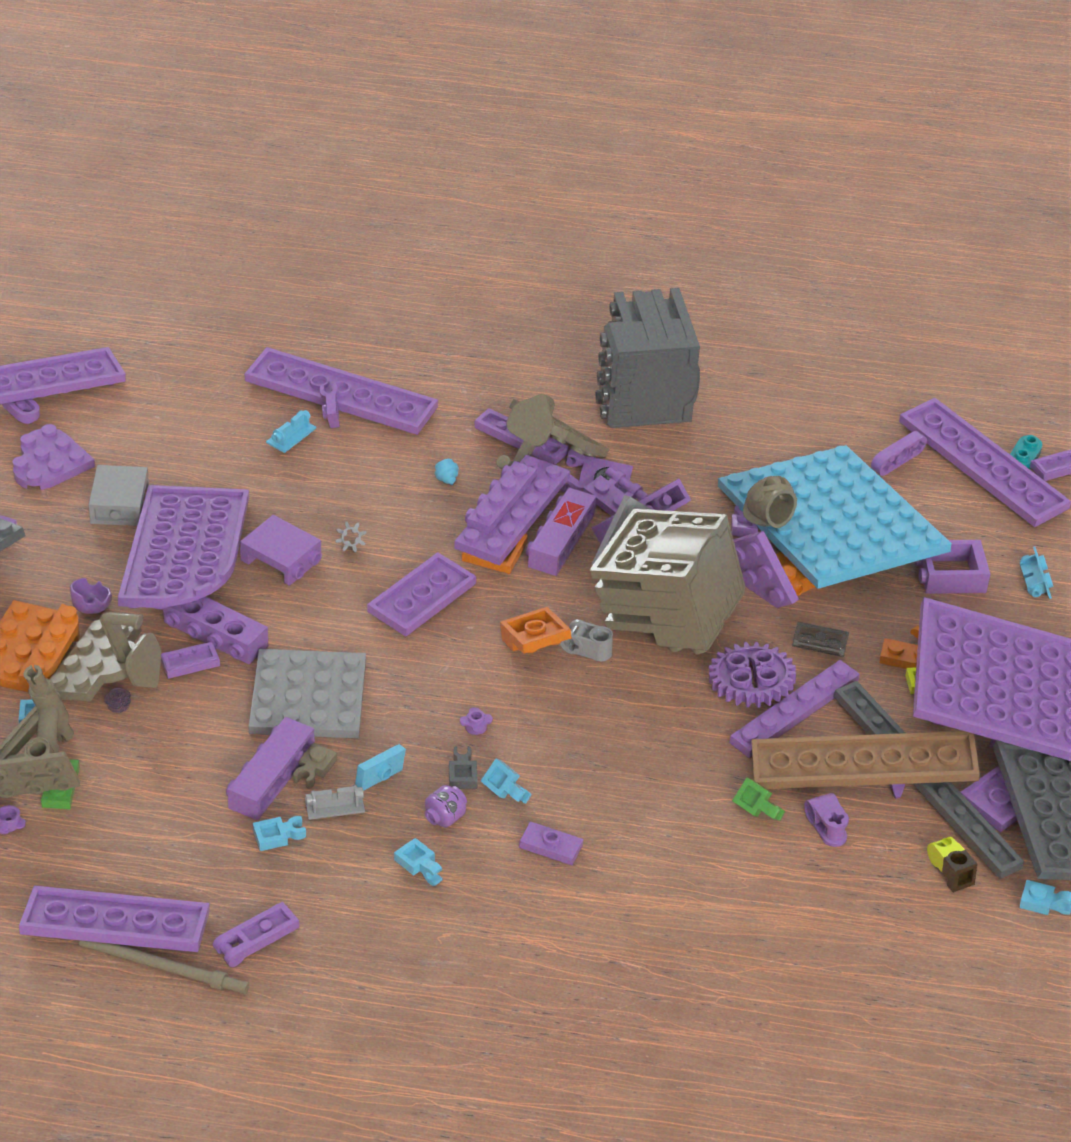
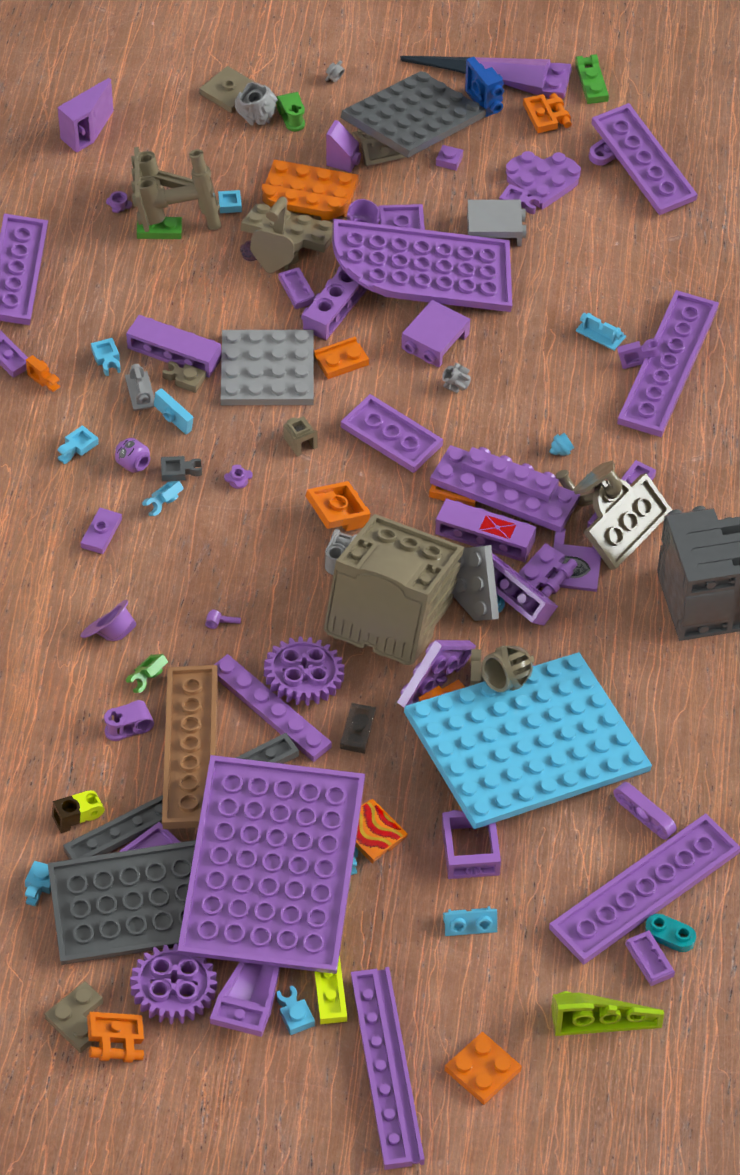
camera: 90 degrees right, 10 degrees up
(81, 478) = (516, 193): none -> medium lavender plate
(101, 565) = (402, 216): none -> medium lavender plate
(301, 630) = (341, 357): none -> orange plate
(301, 893) = (39, 371): none -> orange plate
(421, 664) = (298, 431): none -> dark tan window
(680, 747) = (214, 617): none -> medium lavender hand
(695, 830) = (112, 625): none -> medium lavender piece

